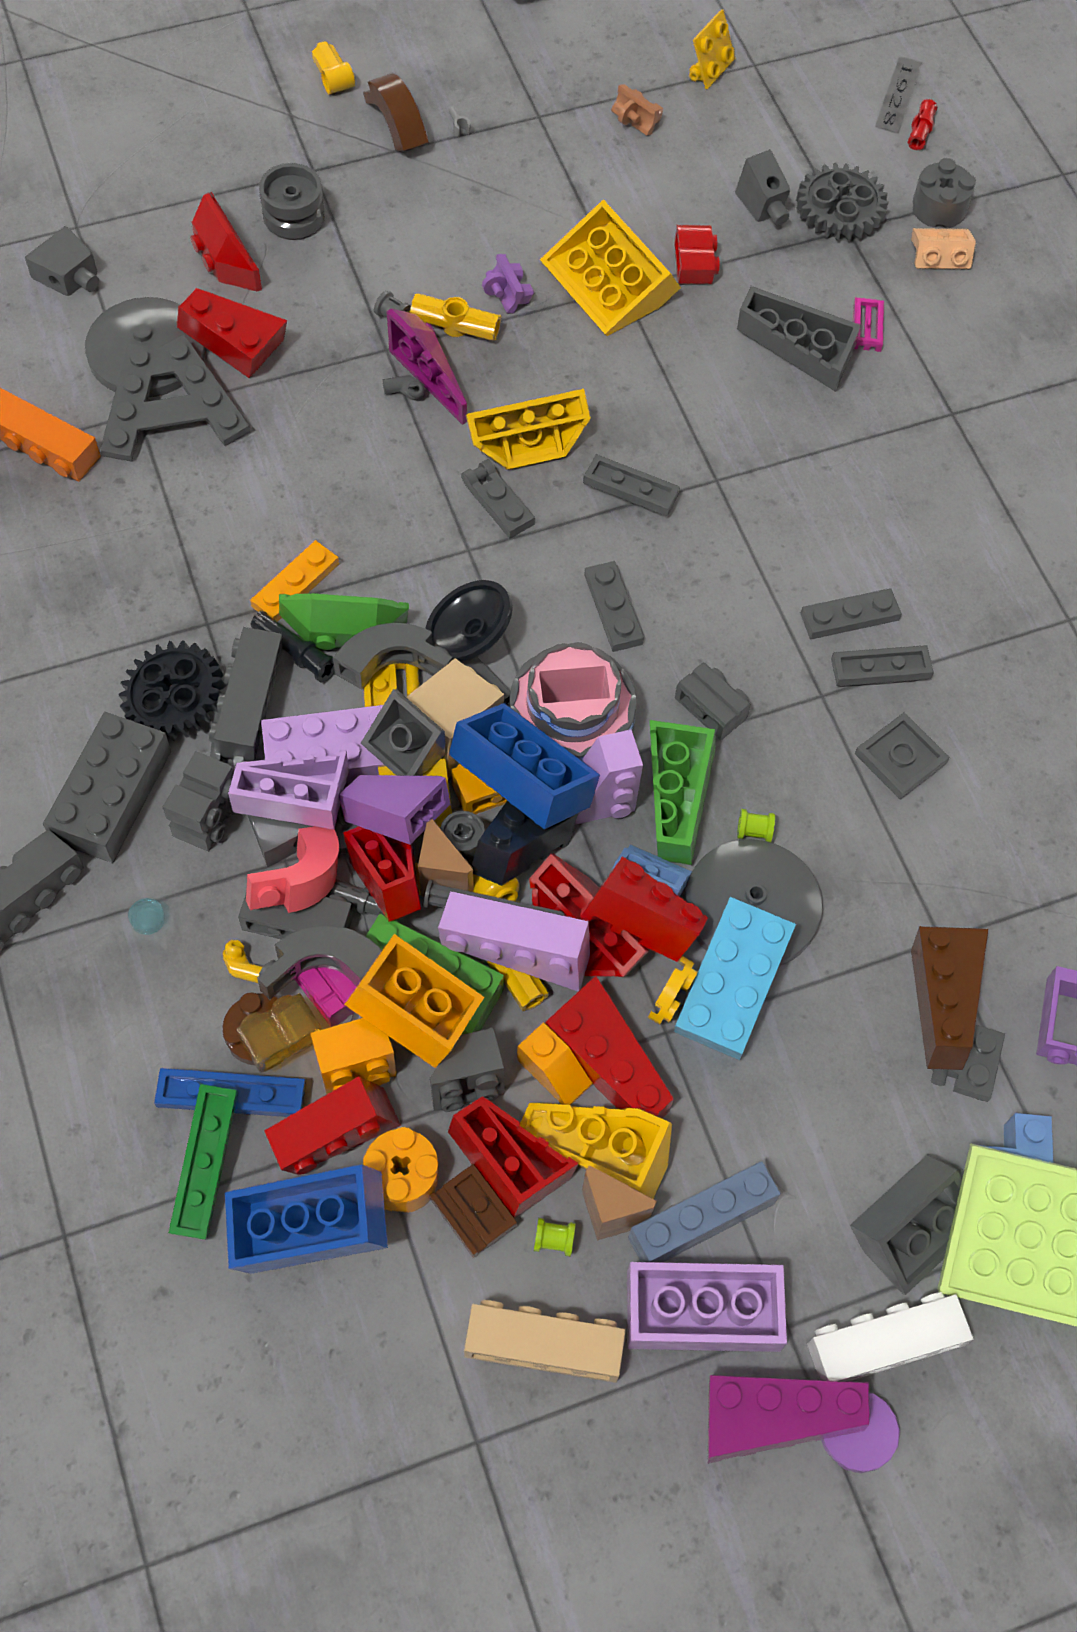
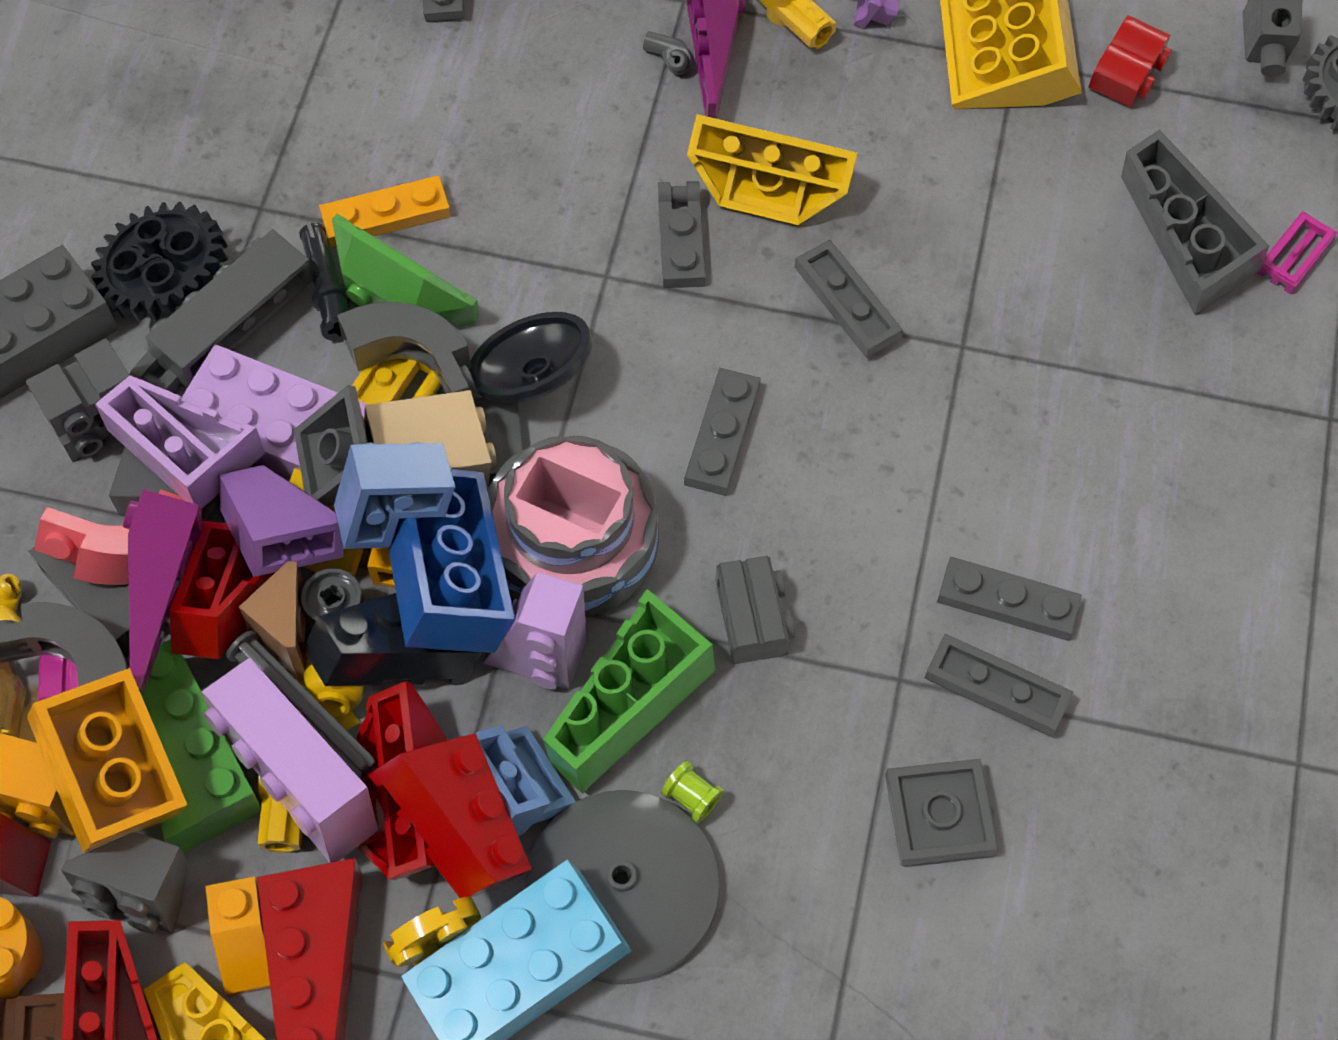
camera: 35 degrees right, 0 degrees up
(351, 866) = (159, 549): none -> magenta wedge
(467, 737) = (390, 484): none -> medium blue brick

